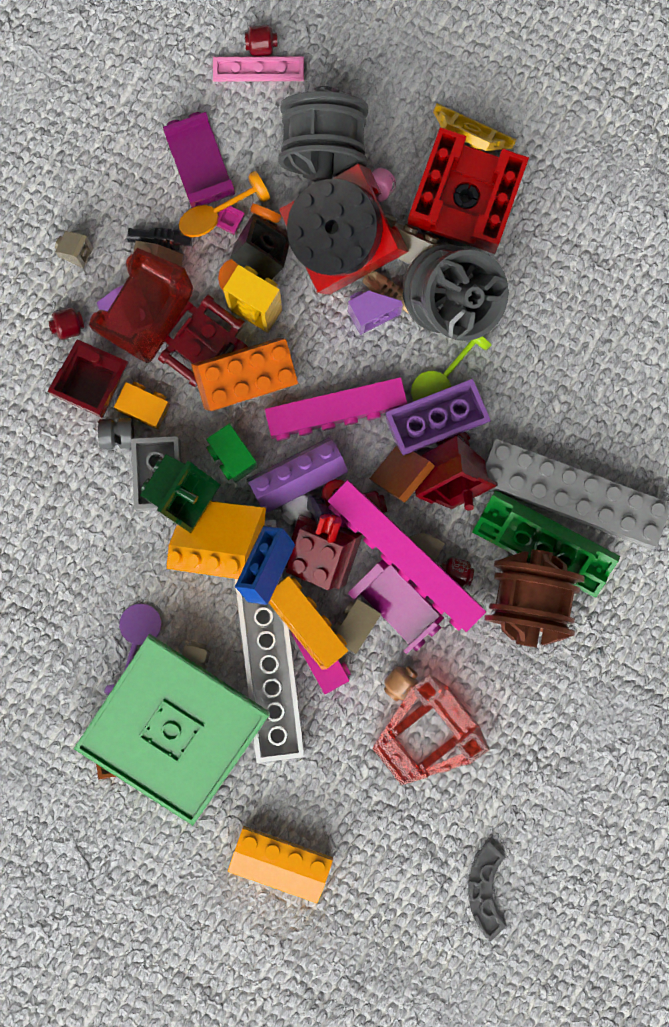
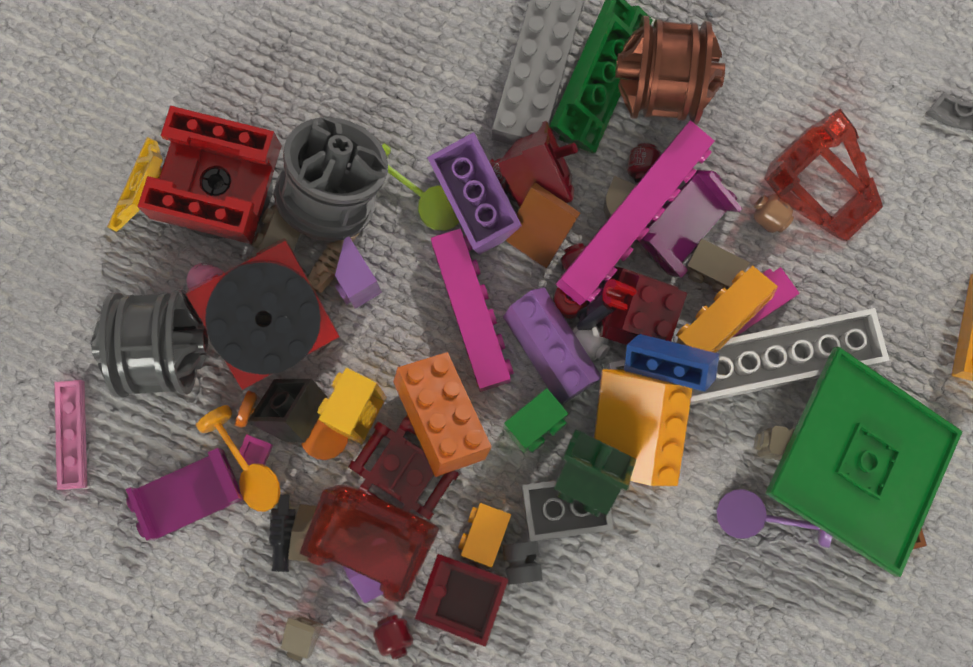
camera: 90 degrees left, 5 degrees down
(260, 40) = (35, 434): dark red head -> none

